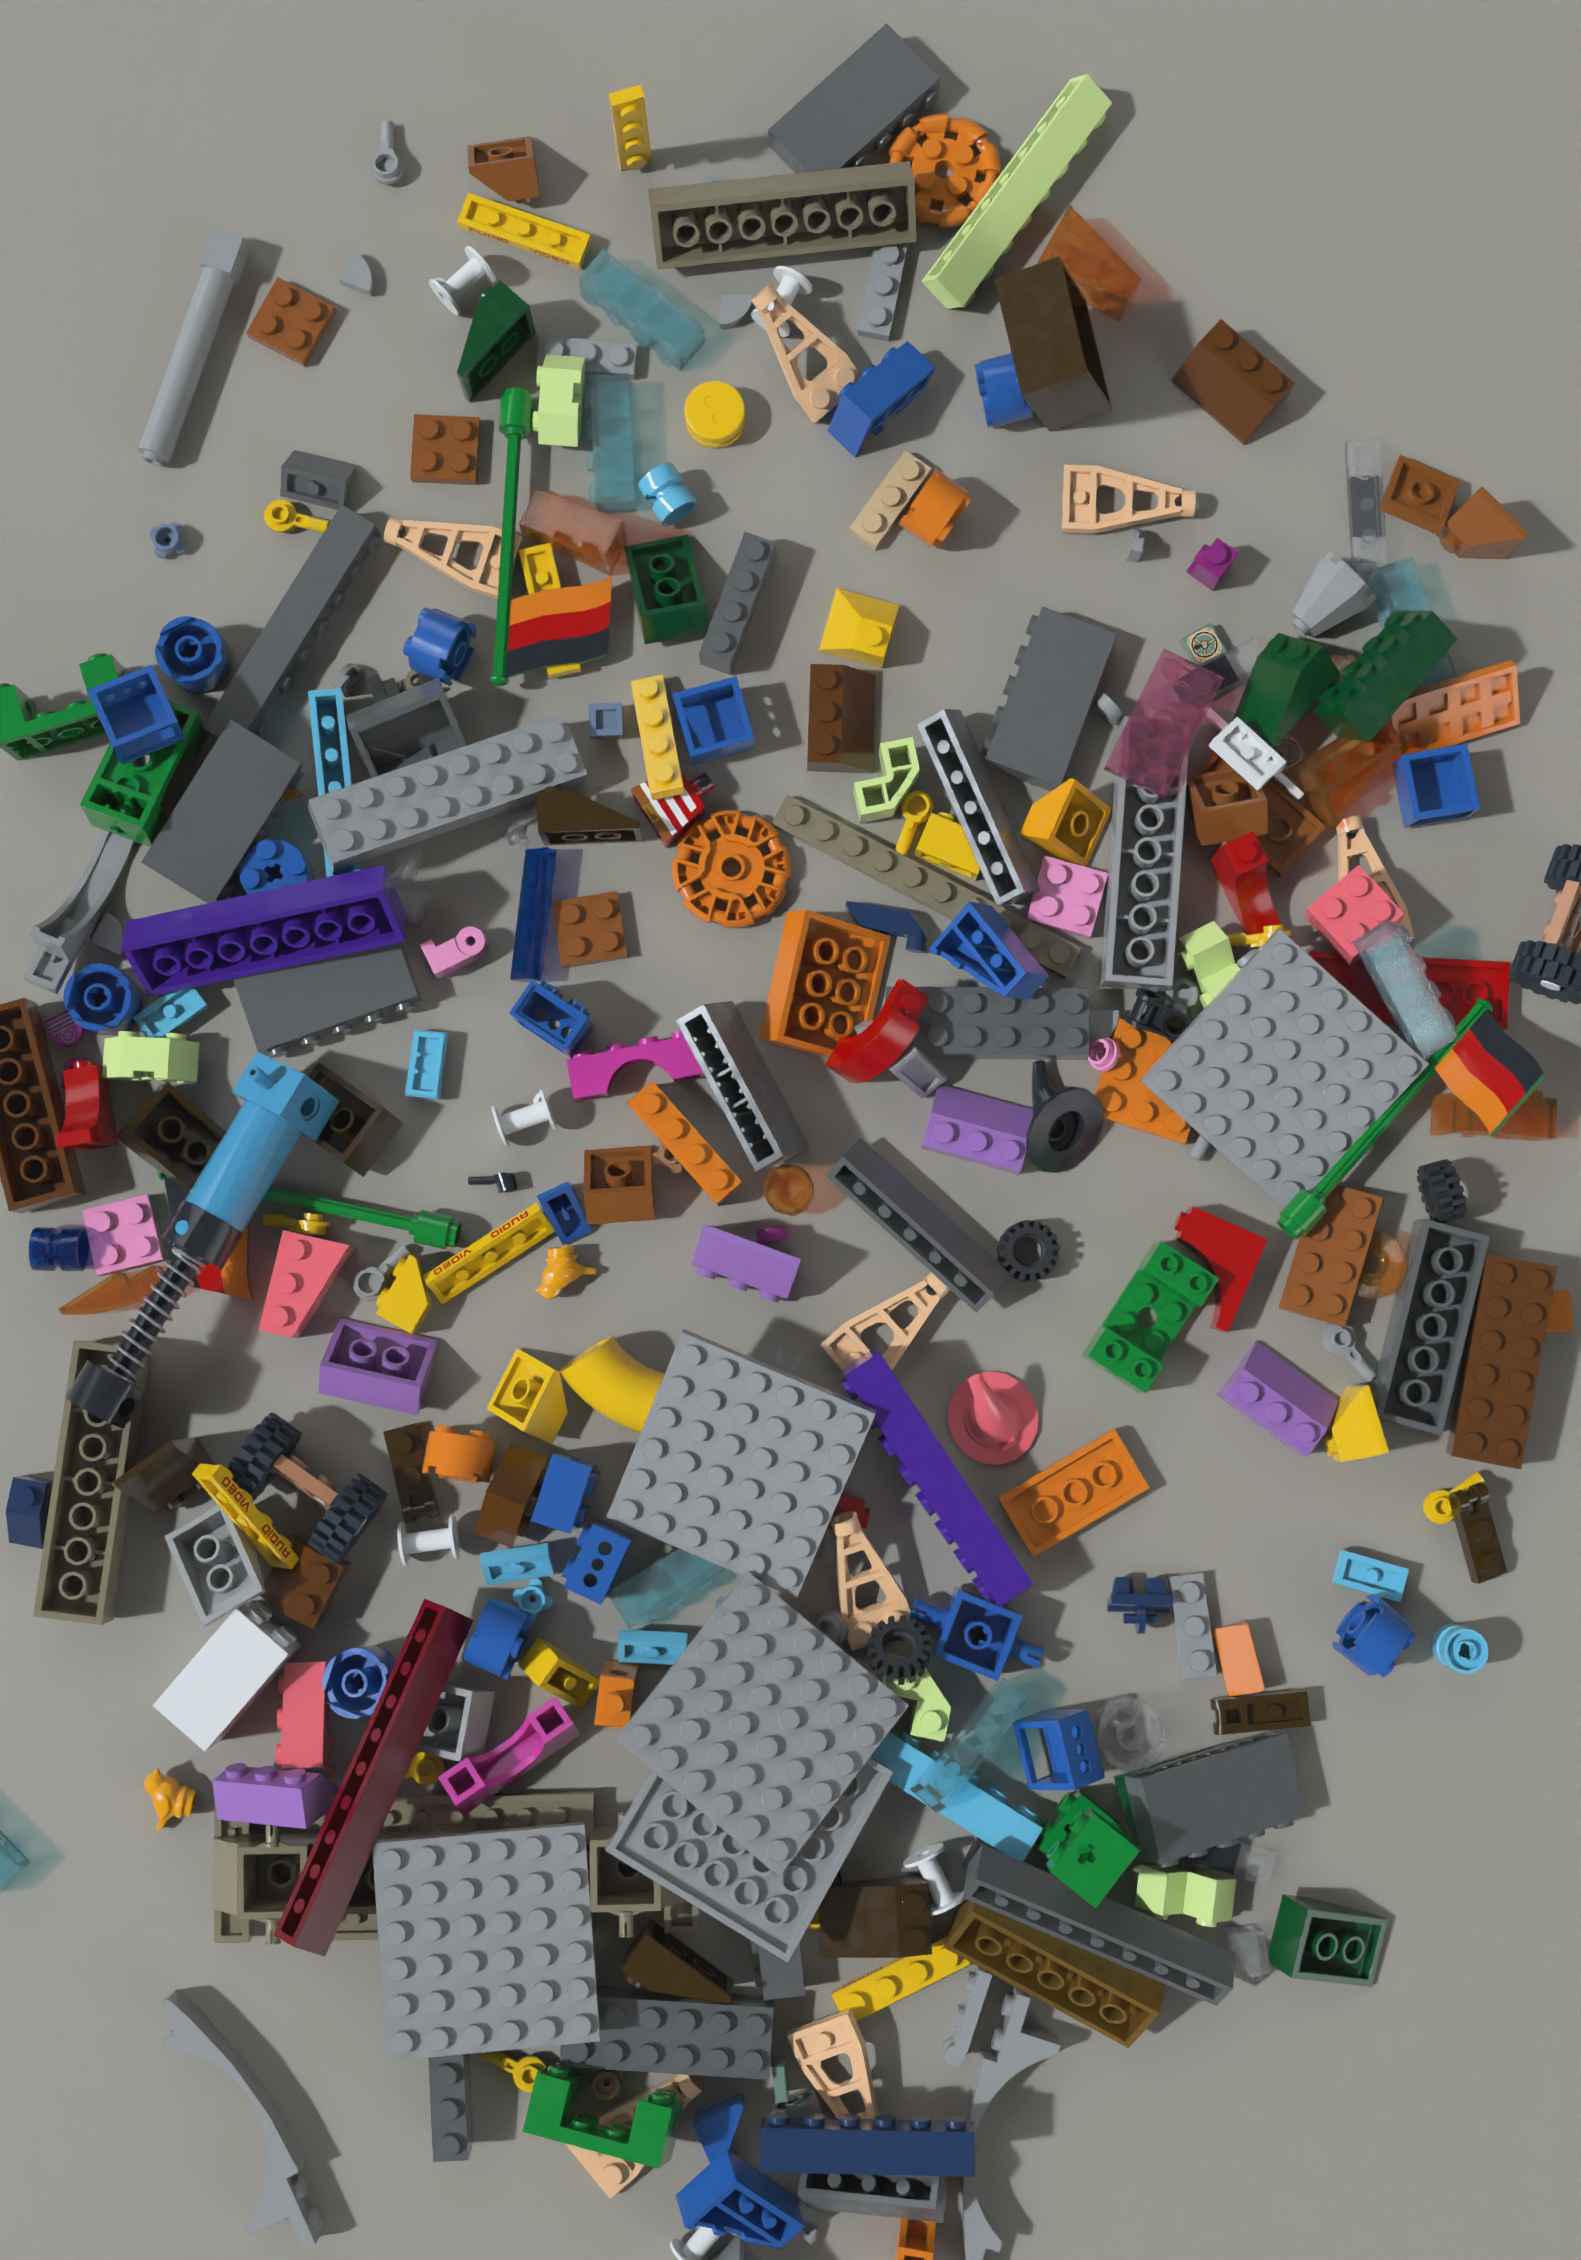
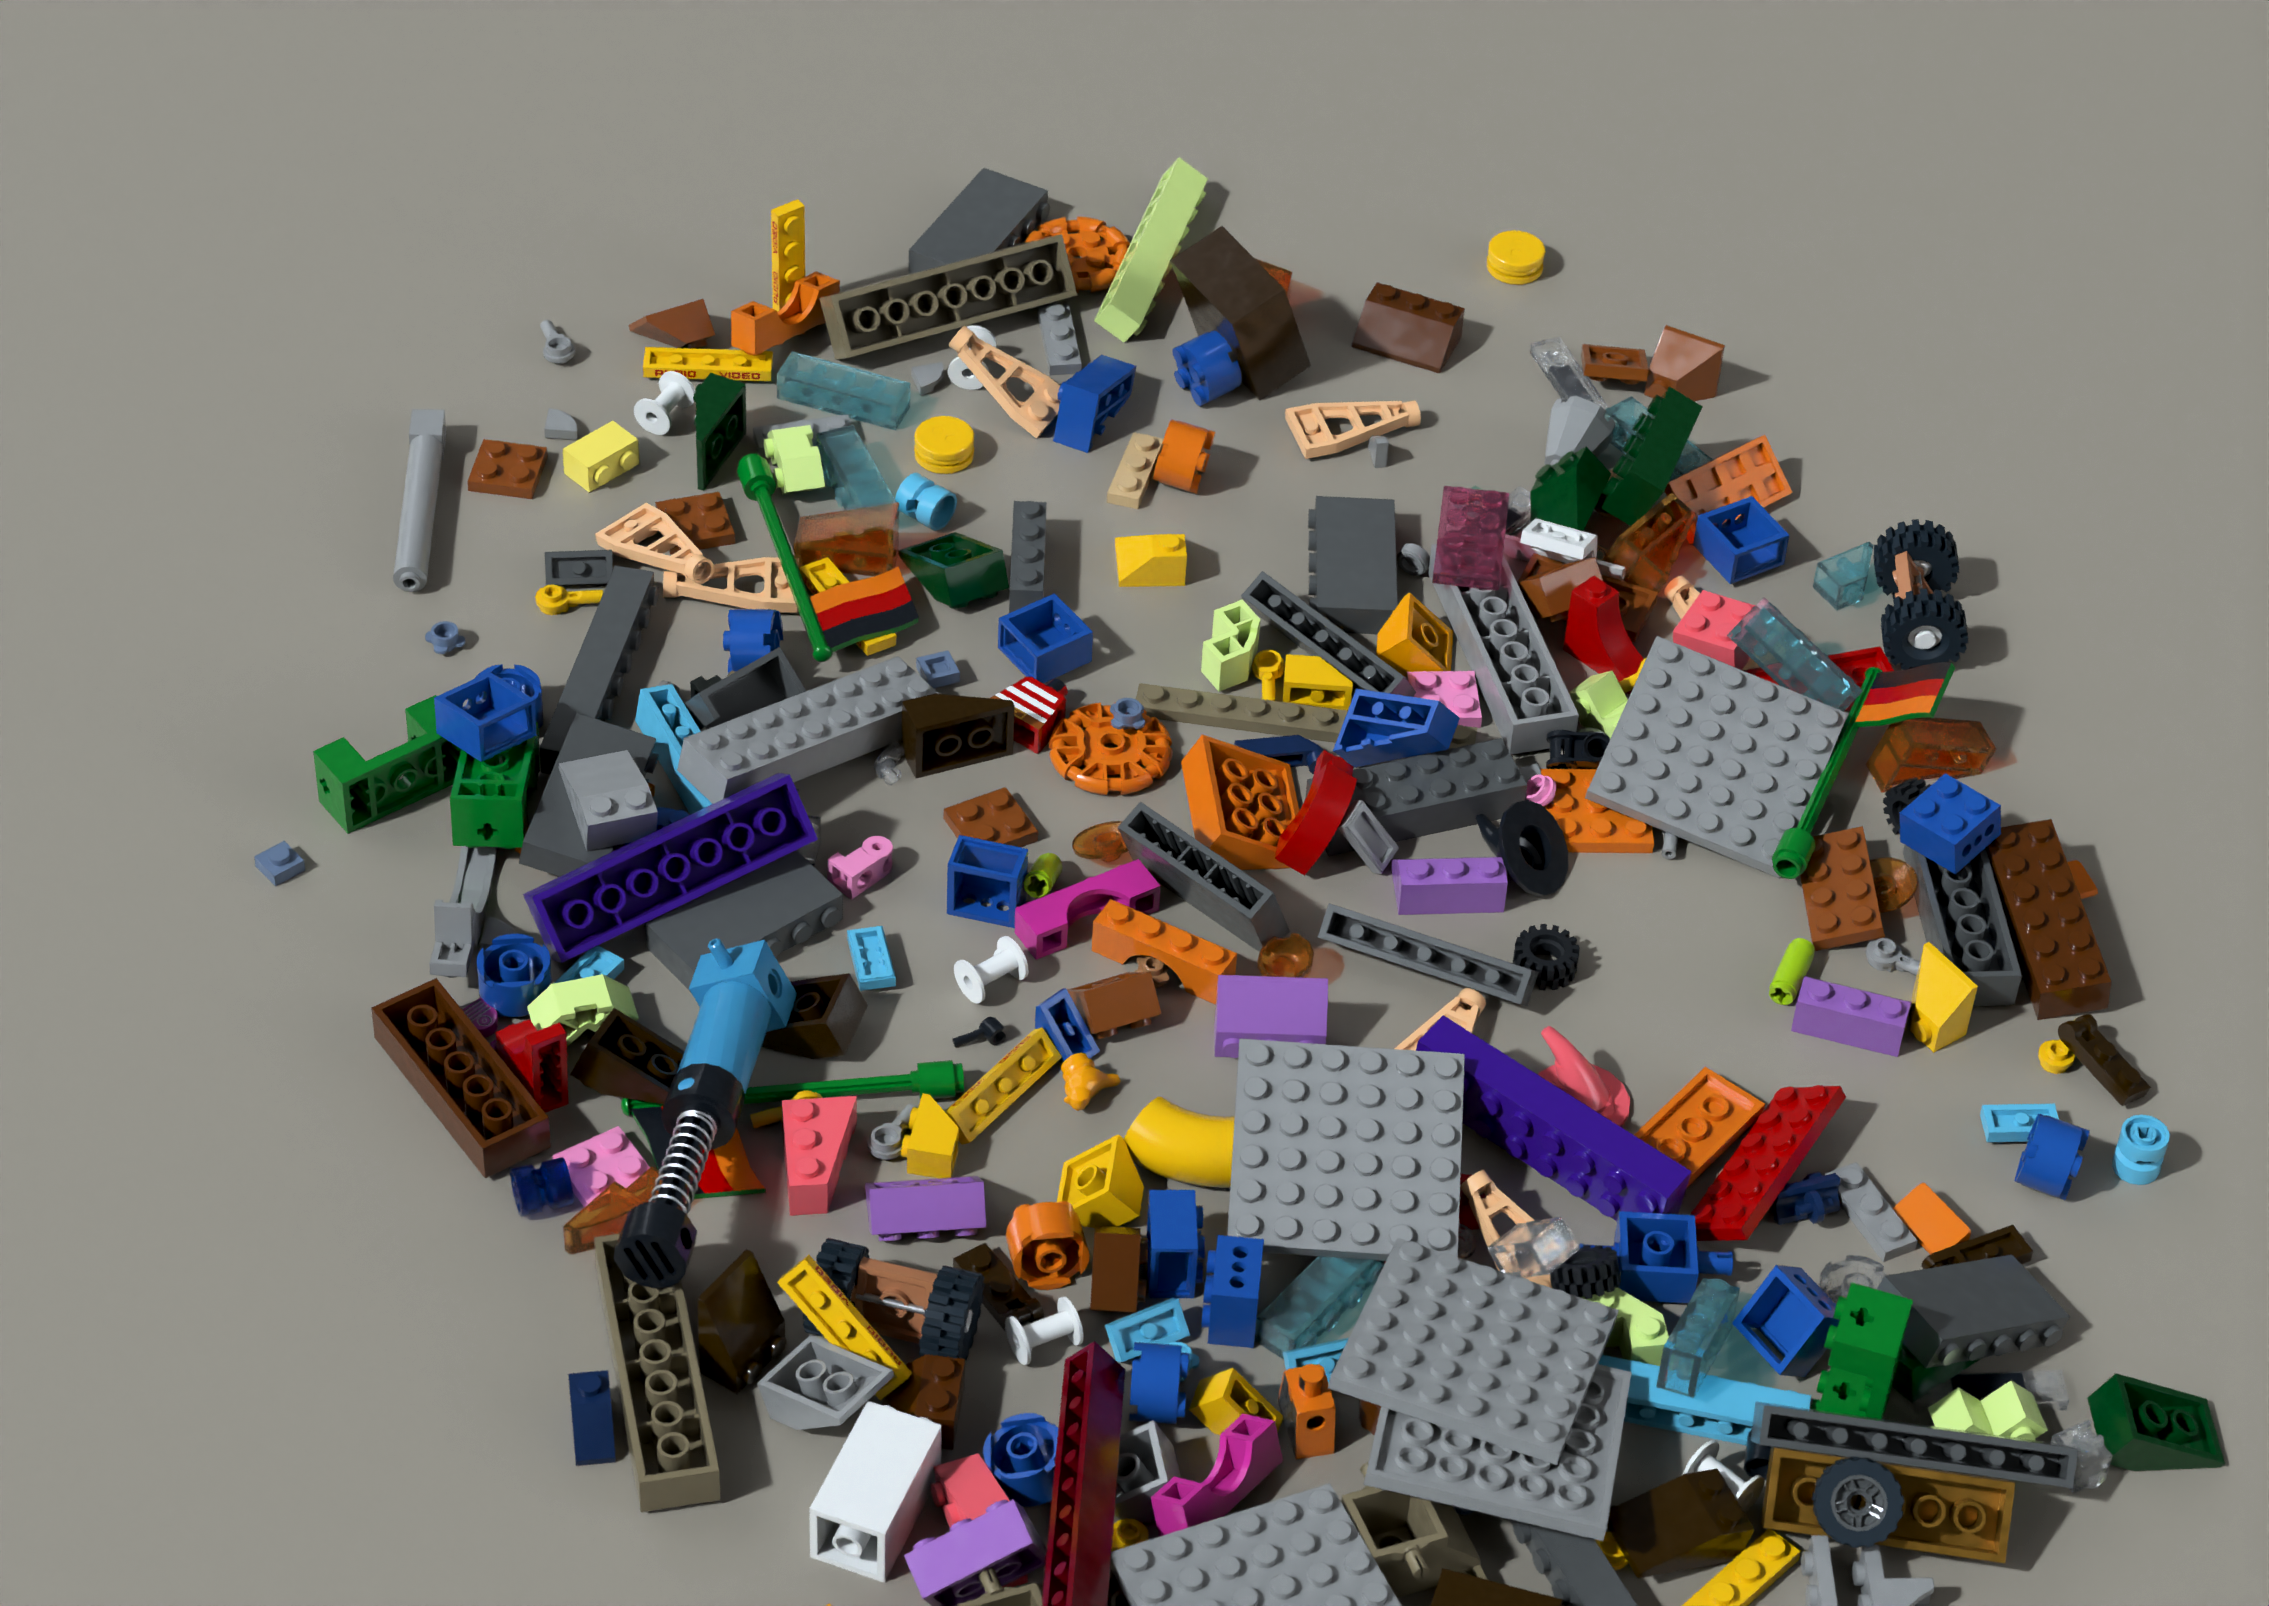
camera: 20 degrees left, 40 degrees down
(228, 833) = (609, 799): none -> light grey slope
(380, 337) = (601, 456): none -> light yellow brick
(381, 448) = (645, 522): none -> light nougat plate
(533, 914) = (929, 819): clear blue plate -> none
(582, 210) = (760, 327): none -> orange arch
(608, 1020) = (1043, 875): none -> lime piece
(657, 737) = (996, 662): yellow plate -> none
(679, 980) = (1100, 842): none -> clear orange dish
(752, 836) = (1127, 714): none -> sand blue plate
(841, 719) = (1160, 619): reddish brown slope -> none
(860, 1623) = (1534, 1247): none -> clear brick
(1021, 1977) = (1866, 1524): none -> black wheel
(1117, 1557) = (1765, 1162): none -> red plate
(1169, 1287) = (1691, 970): green plate -> none
(1212, 563) = (1455, 444): magenta brick -> none
(1227, 1253) = (1736, 910): red arch -> none
(1244, 1336) = (1791, 971): none -> lime piece
(1386, 304) = (1515, 257): none -> yellow head
(1455, 1252) = (1950, 823): none -> blue piece
(1520, 859) = (1844, 576): none -> clear light blue slope

